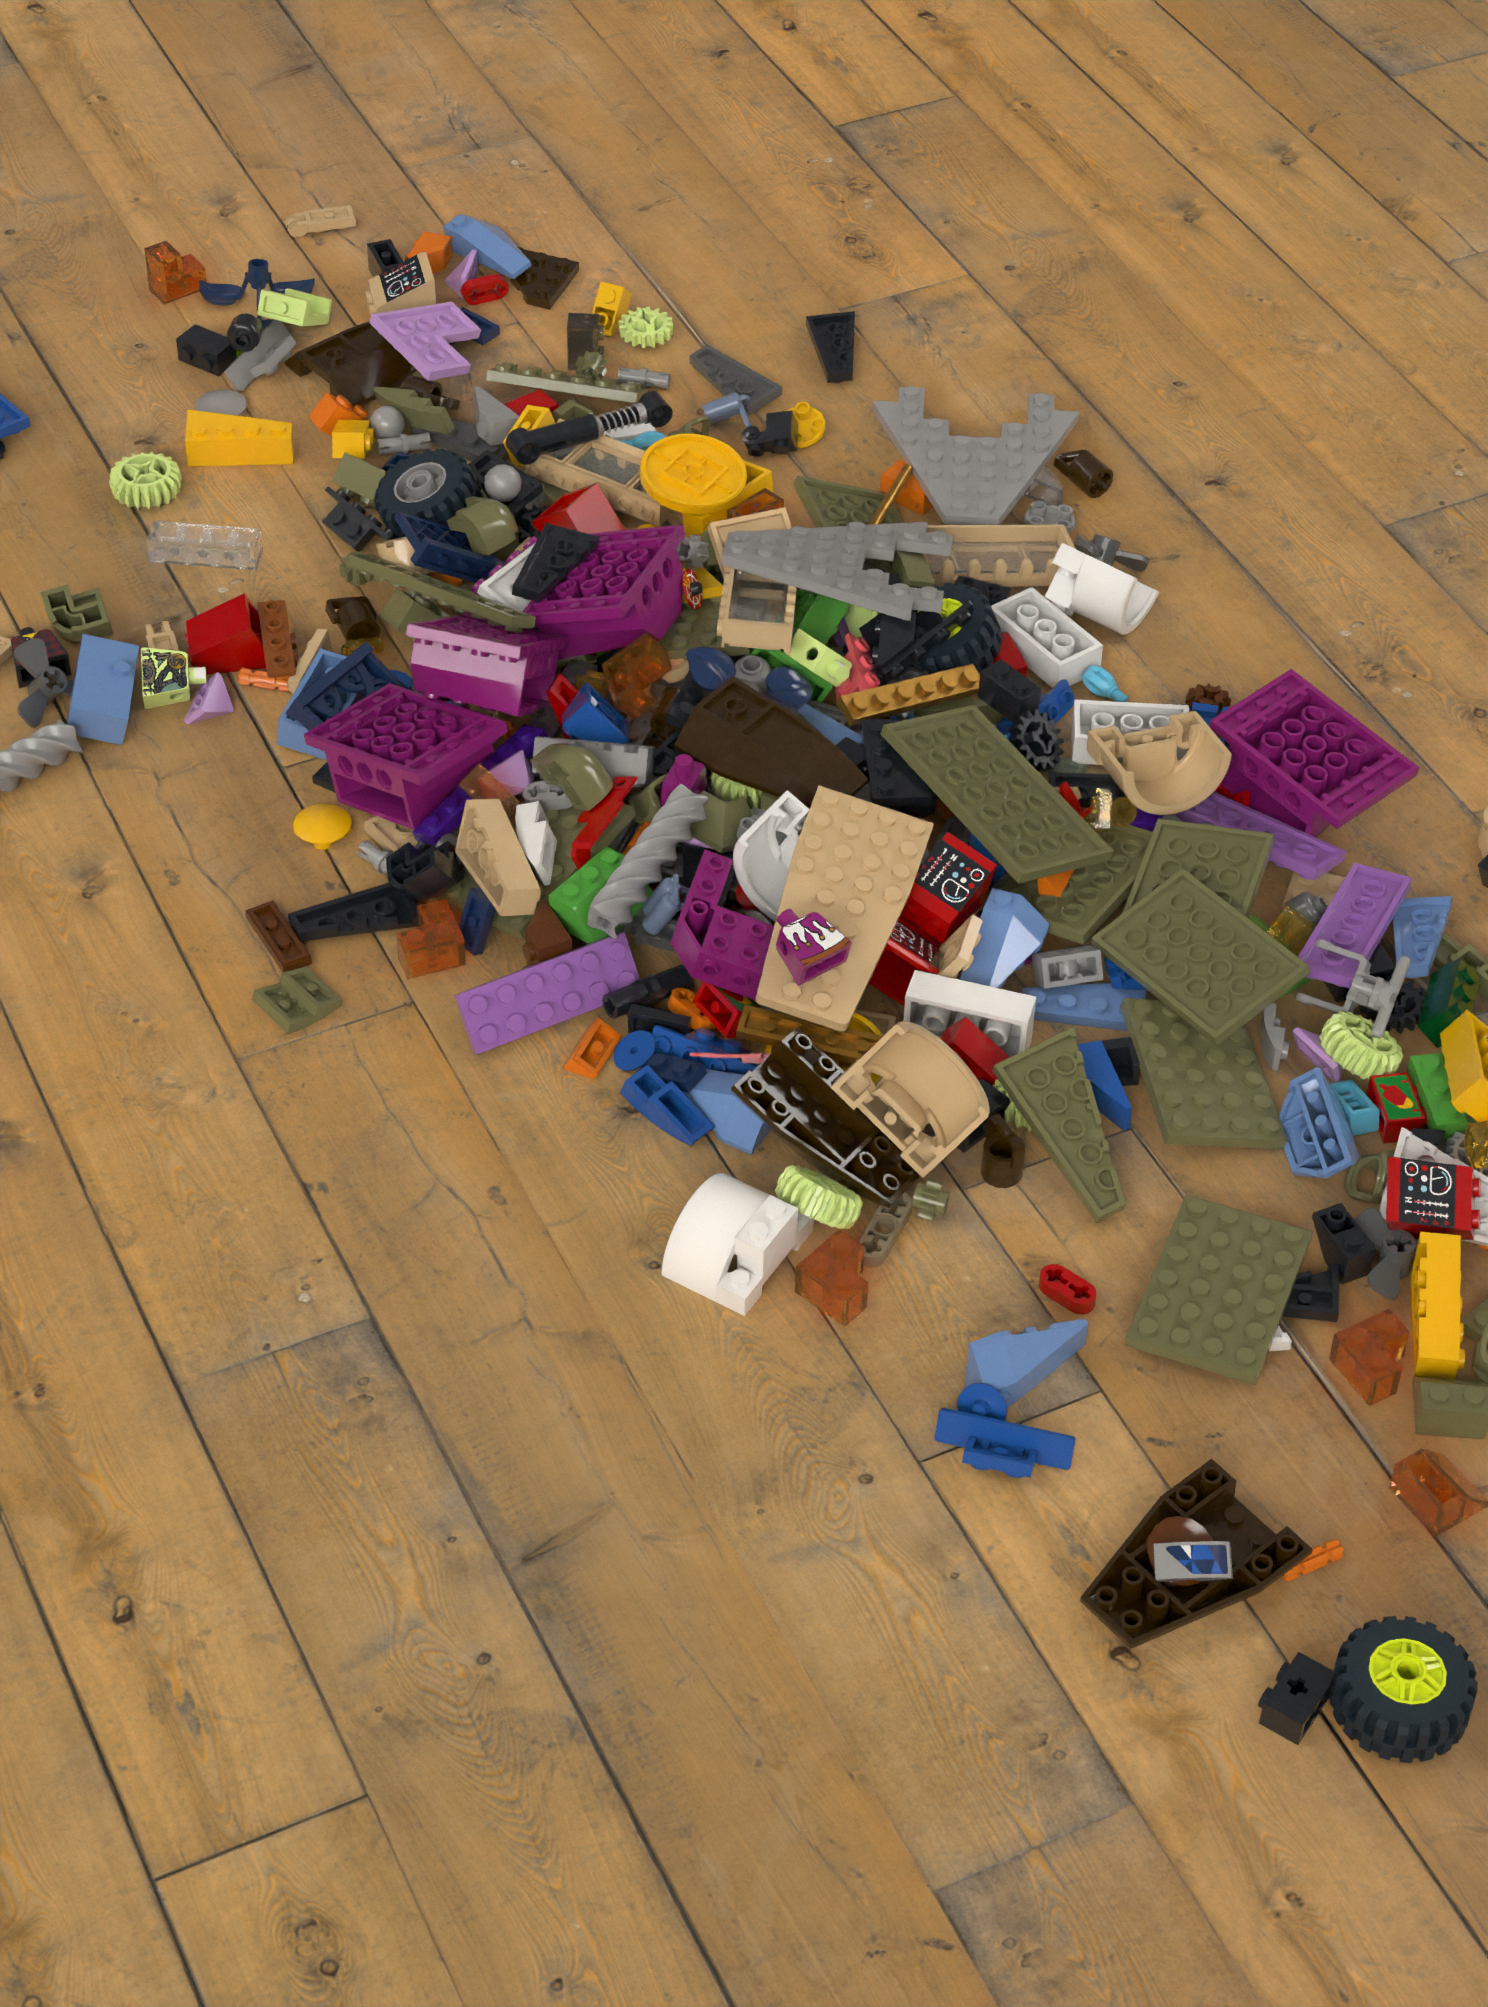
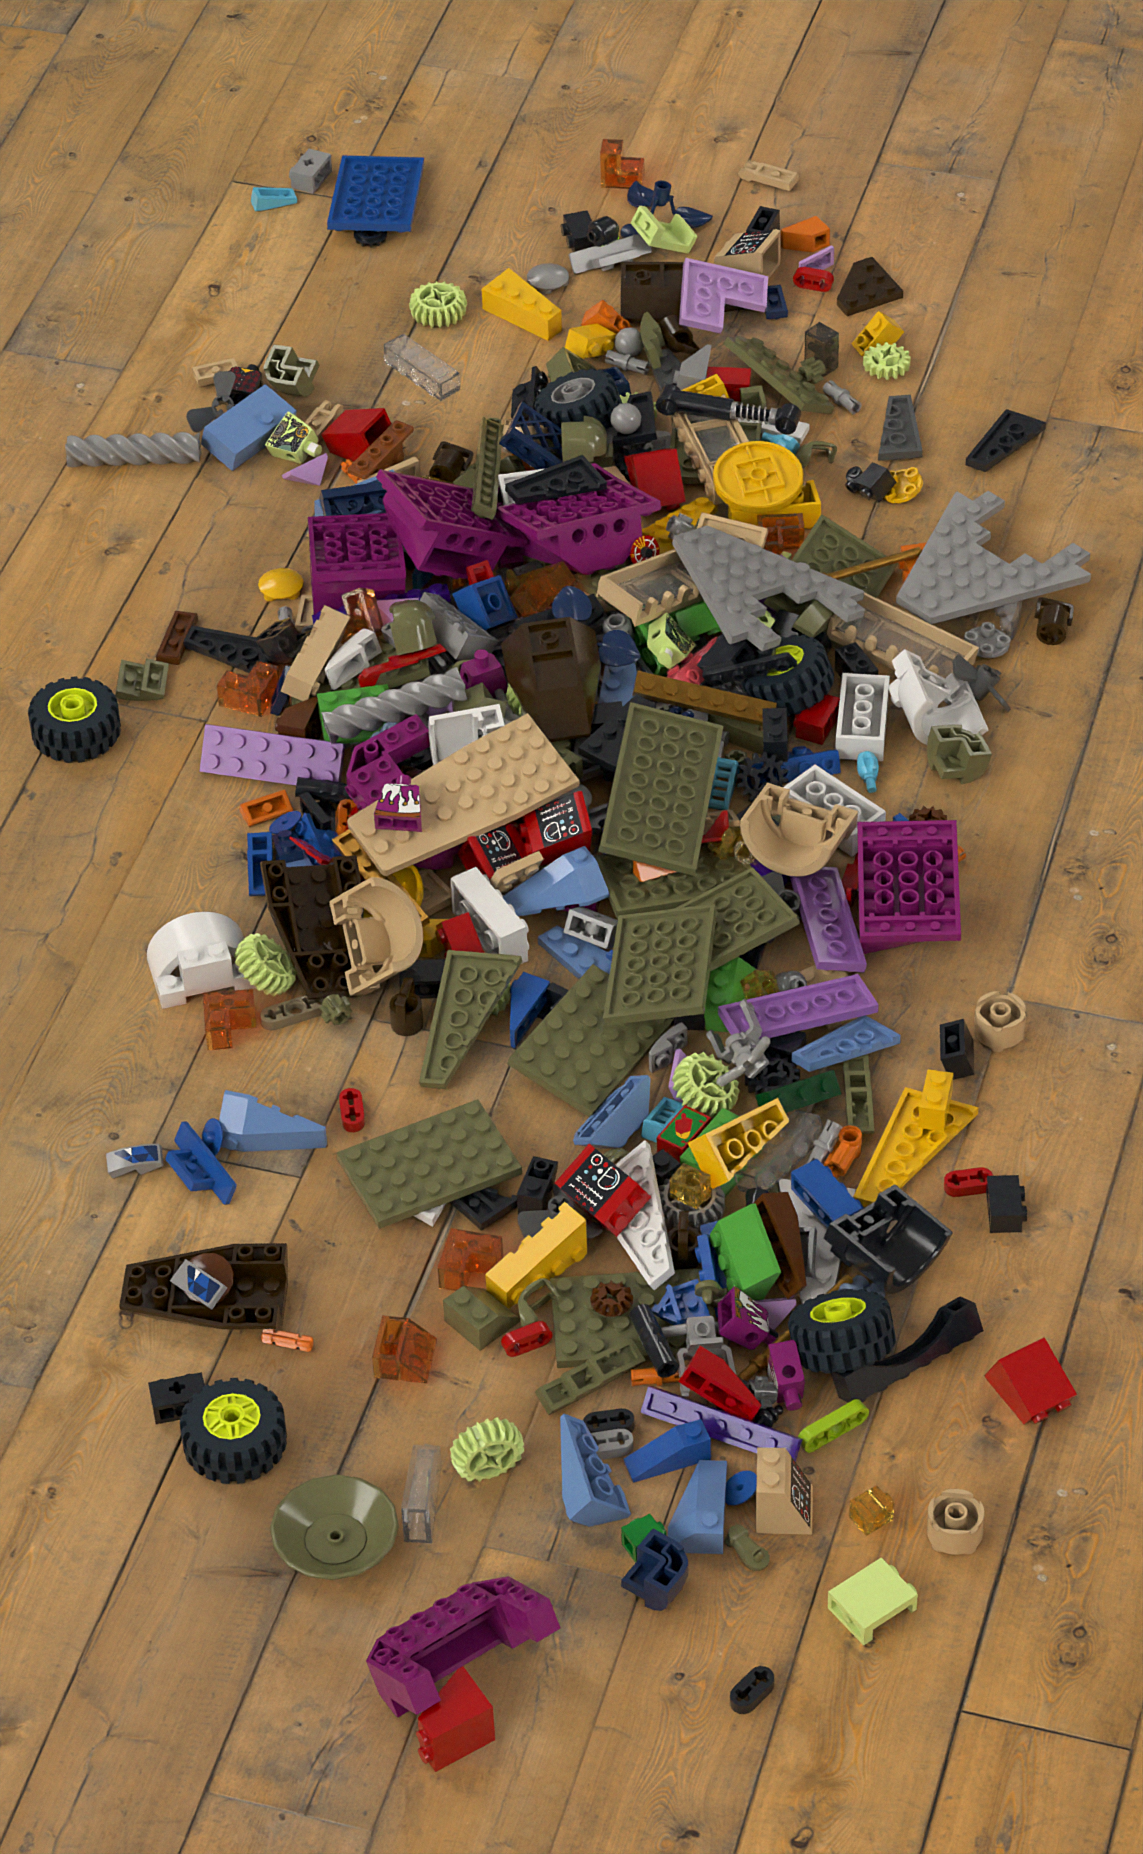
camera: 45 degrees right, 0 degrees up
(288, 1077) = (74, 719): none -> black wheel
(491, 242) = (852, 245): medium blue wedge -> none
(727, 407) = (859, 445): sand blue piece -> none
(927, 1485) = (139, 1157): none -> light grey slope
(1167, 624) = (957, 753): none -> olive brick

